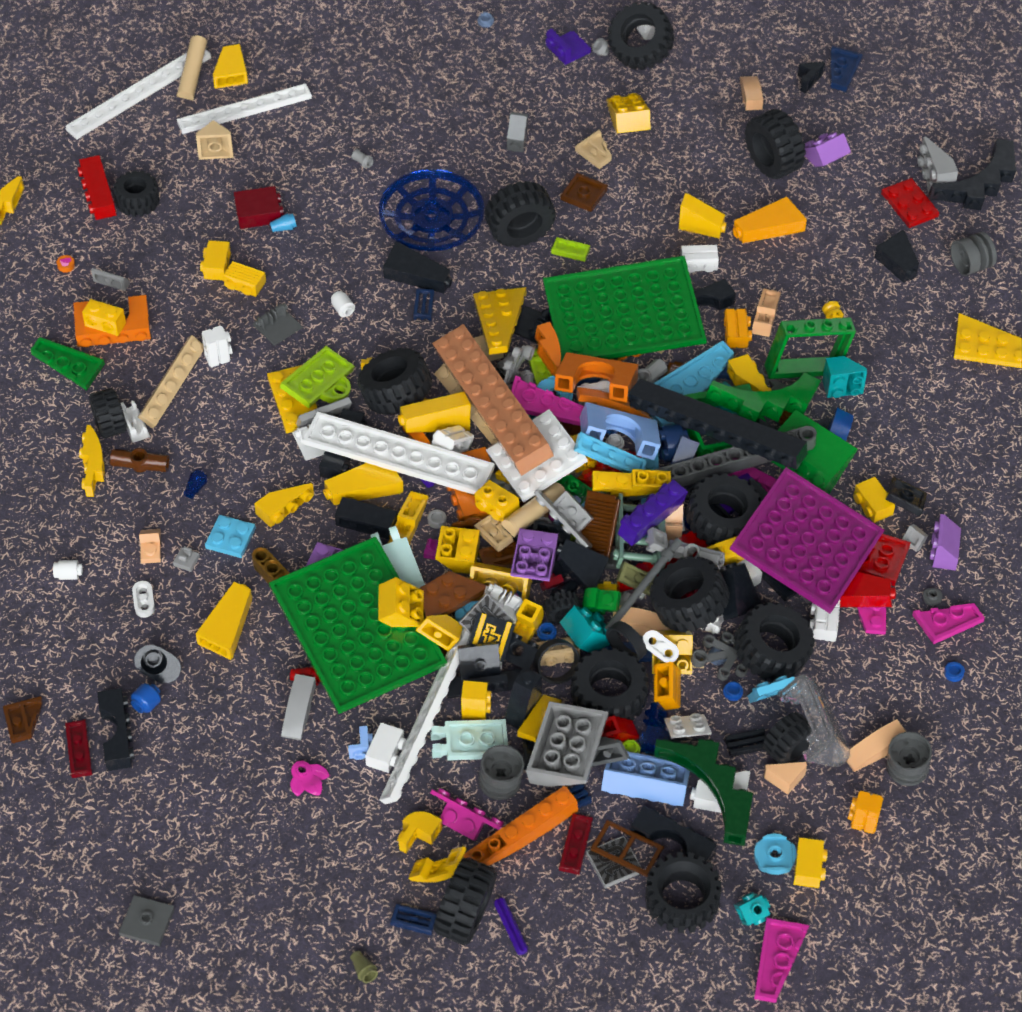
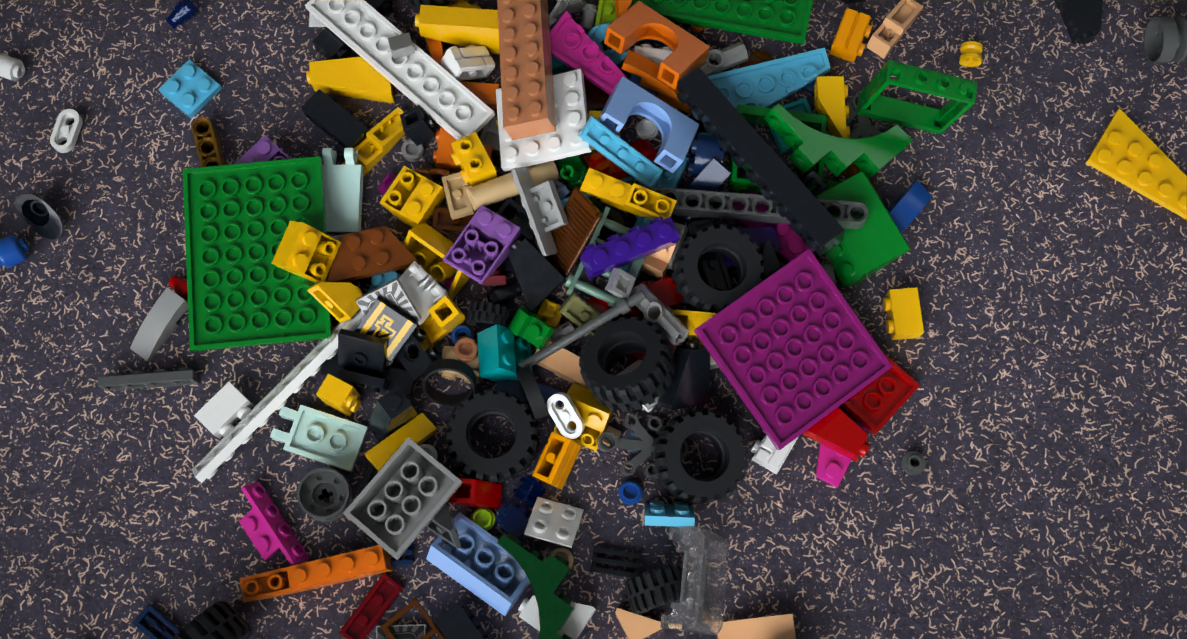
camera: 25 degrees right, 20 degrees up
(150, 545) = (105, 67): light nougat slope -> none
(186, 559) = (133, 99): light grey tile -> none
(225, 623) = (135, 191): yellow slope -> none
(280, 503) = (253, 71): yellow slope -> none
(309, 780) = (131, 416): dark pink plate -> none
(312, 748) = (142, 380): none -> dark grey plate
(359, 750) = (206, 392): light blue bracket -> none
(398, 441) = (401, 45): none -> light grey slope
(421, 826) = (213, 520): yellow brick -> none
(429, 871) = (200, 585): yellow slope -> none
(437, 495) = (418, 125): none -> black brick
(556, 632) = (466, 349): none -> nougat tile
(843, 377) = (941, 145): teal slope -> none
(906, 496) = (942, 326): black plate -> none
(915, 536) = (929, 380): light grey tile -> none
(944, 623) = (915, 503): dark pink wing -> none
(945, 544) = (959, 406): medium lavender slope -> none
(954, 671) = (893, 569): blue tile -> none

